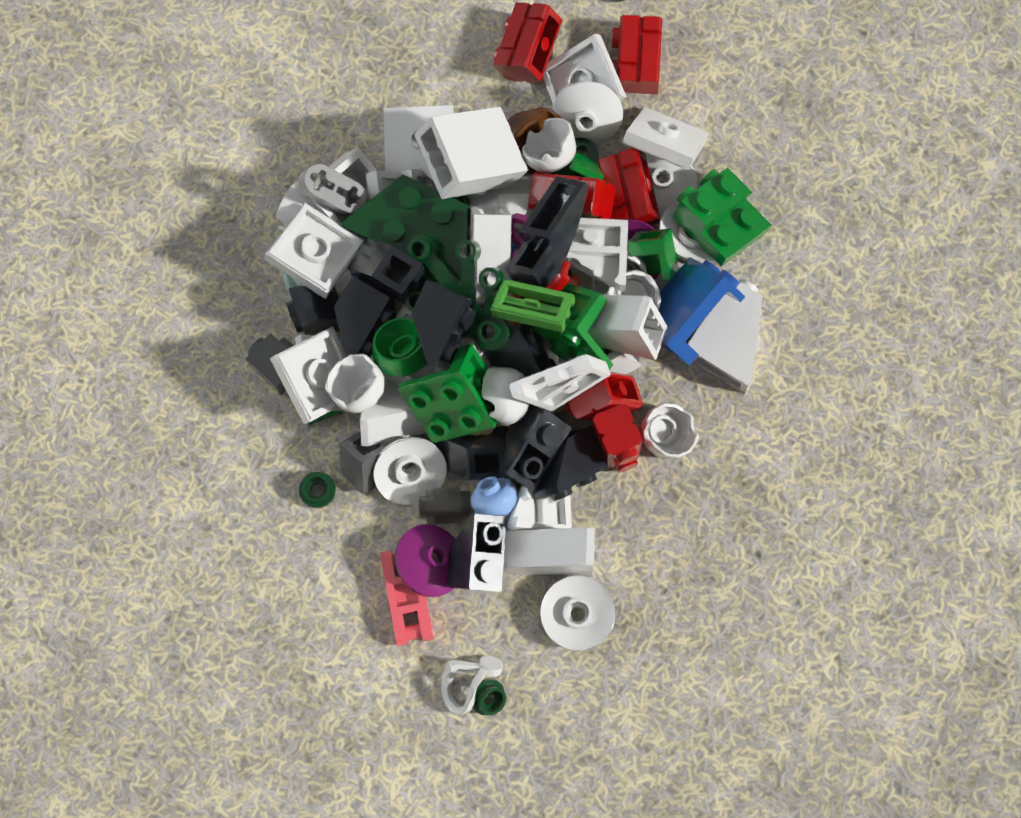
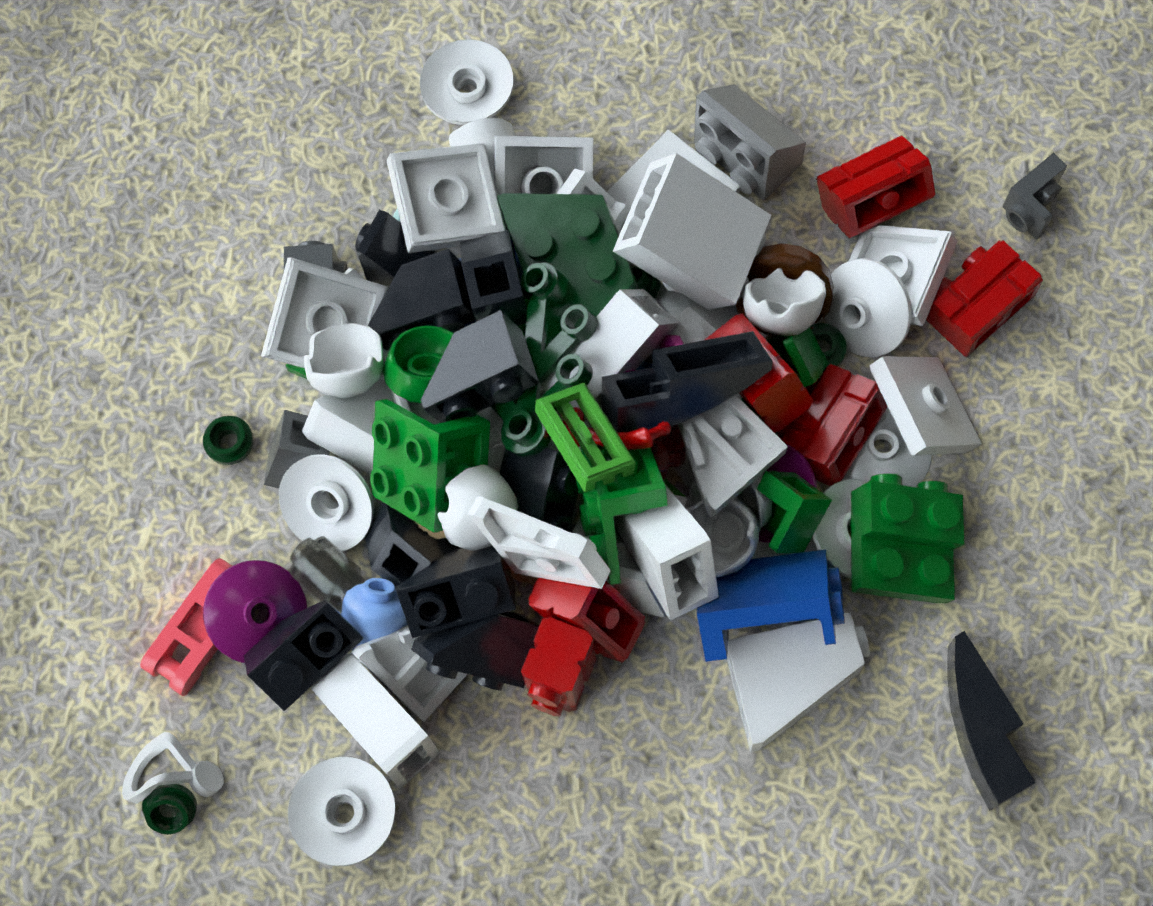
camera: 45 degrees right, 5 degrees down
(243, 163) = (464, 64): none -> white dish
(336, 182) = (533, 147): light grey beam -> none
(435, 77) = (745, 140): none -> light grey slope
(659, 423) = (620, 696): white hair -> none
(843, 273) = (983, 723): none -> black slope

